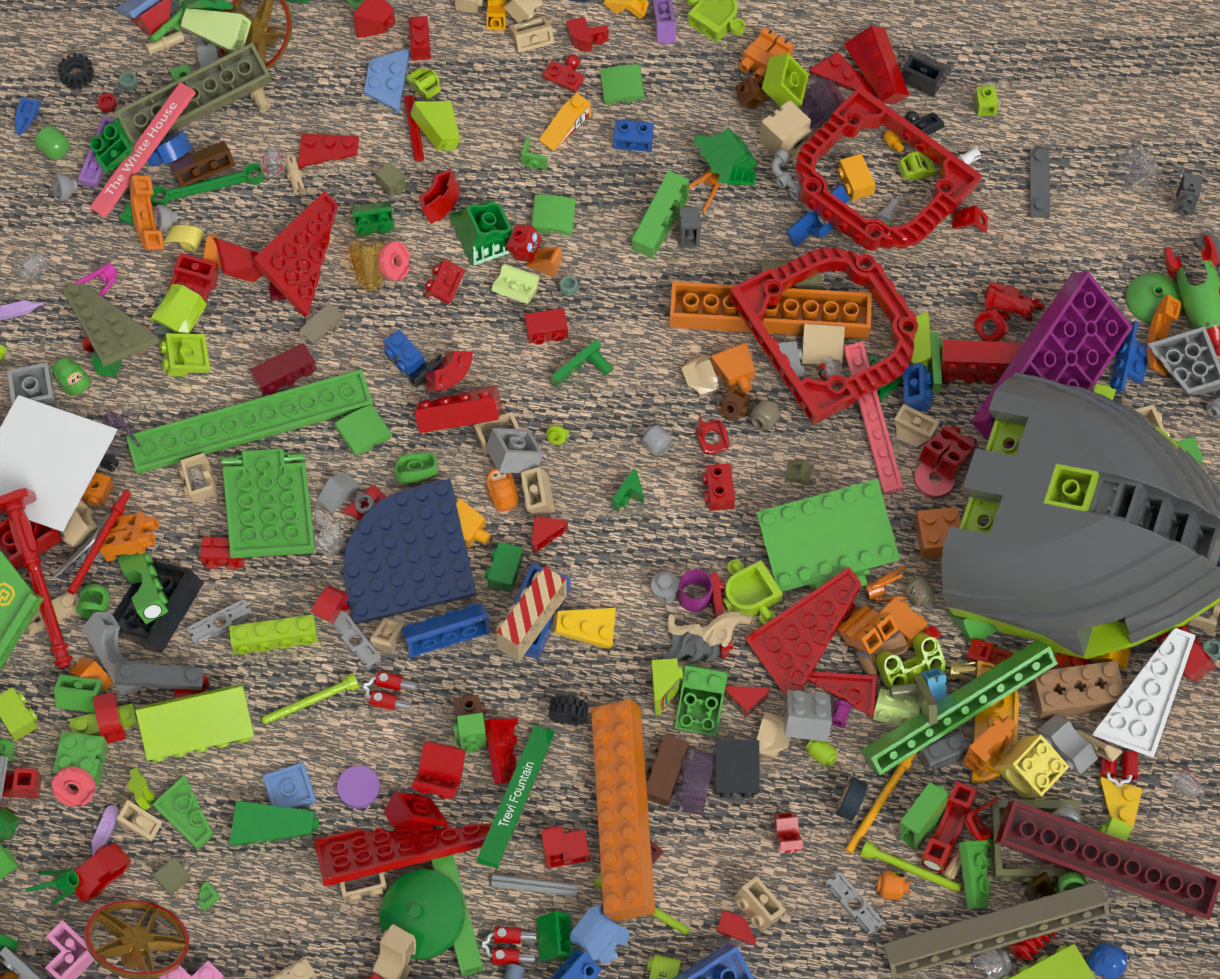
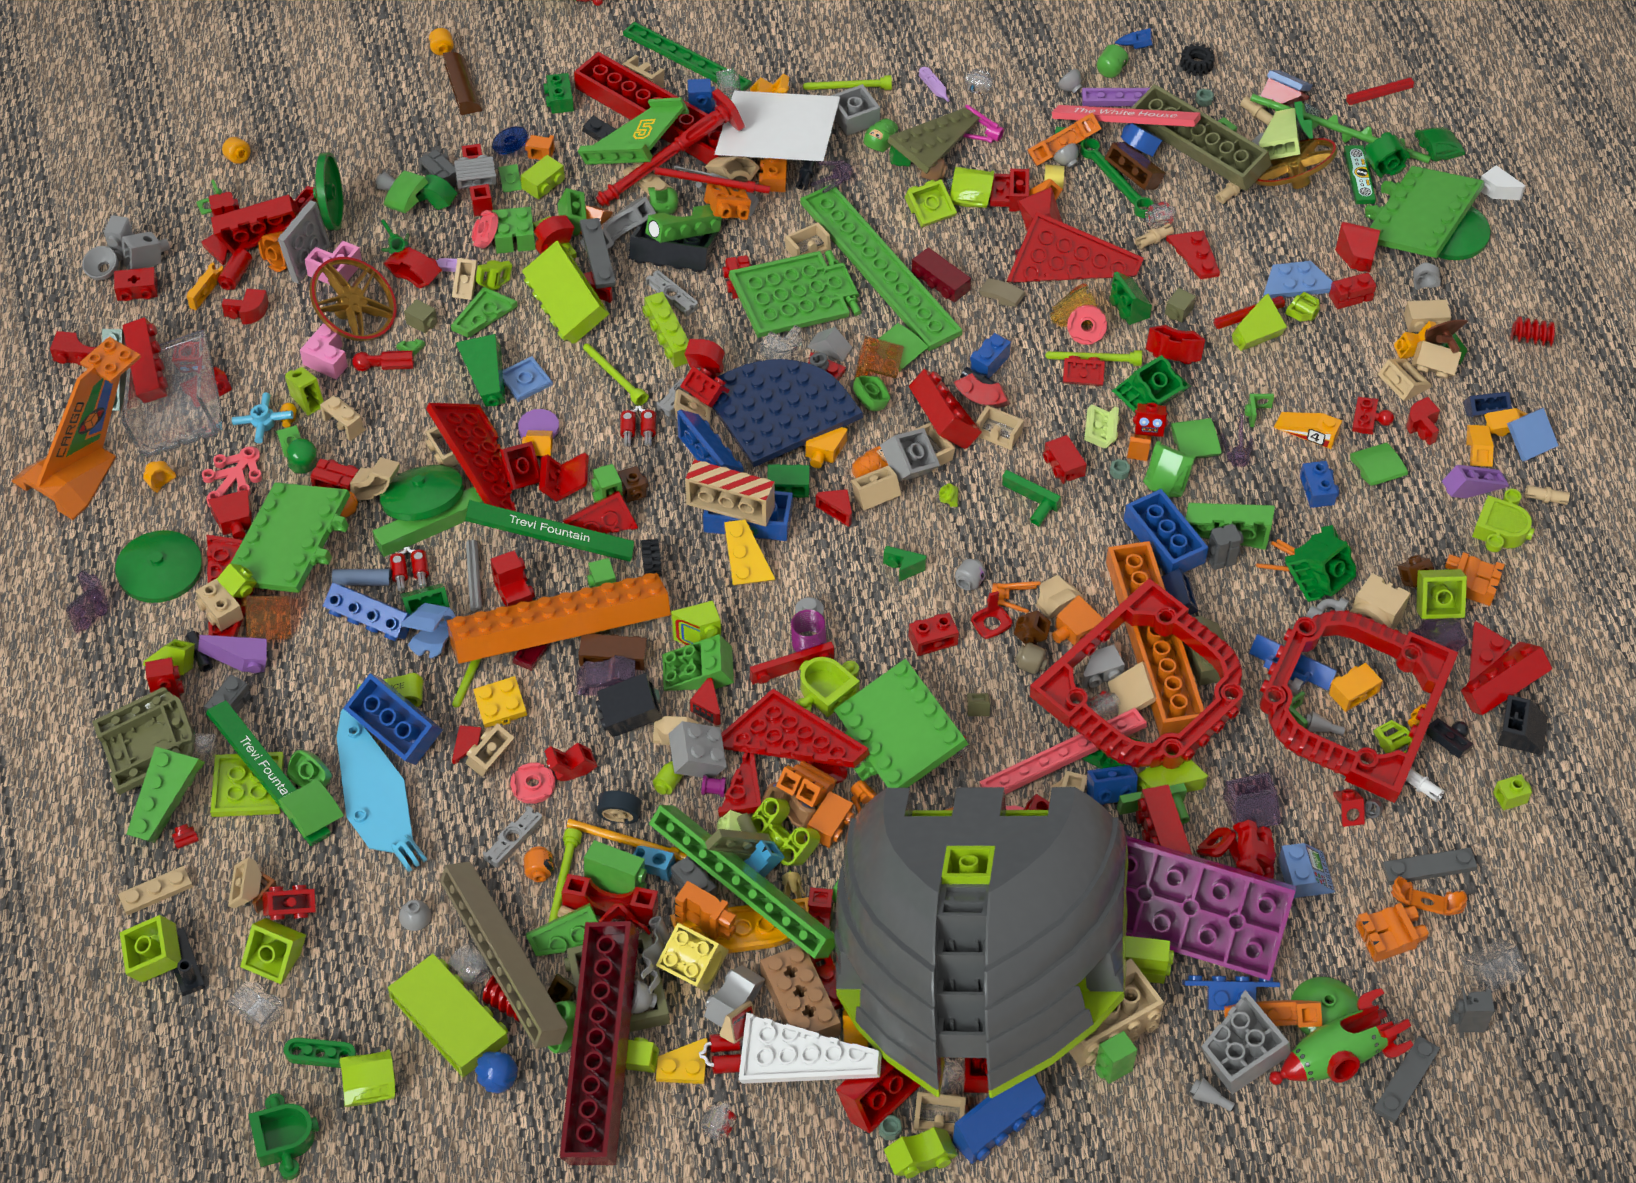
camera: 75 degrees right, 10 degrees down
(107, 102) = (1176, 89): red tile -> none
(111, 146) = (1121, 94): green slope -> none
(222, 923) = (386, 360): none -> red piece
(367, 614) = (703, 386): none -> red bracket
(377, 452) = (879, 358): none -> clear orange bracket
(385, 785) = (541, 440): none -> light orange brick
(440, 235) = (1133, 358): none -> lime piece
(492, 368) = (999, 427): none -> tan window
(573, 762) = (600, 573): none -> bright green brick
(581, 185) = (1238, 456): none -> clear purple plant
(589, 246) = (1169, 470): none -> bright green slope
(655, 268) = (1170, 535): none -> blue brick
(683, 420) = (1004, 592): none -> orange plant
(696, 887) = (500, 702): none -> yellow plate
(700, 640) = (758, 651): piece -> none
(722, 276) = (1179, 586): none -> dark blue brick
(793, 887) = (536, 793): none -> coral tile
(912, 783) = (656, 861): none -> dark azure leg
(932, 631) = (825, 850): red tile -> none
(956, 288) = (1253, 800): none -> clear purple slope
(977, 200) = (1368, 806): none -> flat silver hinge
(999, 790) = (652, 953): none -> light grey flag
(1029, 273) = (1306, 869): none -> medium blue slope
(1080, 181) = (1447, 906): none -> orange piece
(1098, 228) = (1391, 931): none -> orange hips

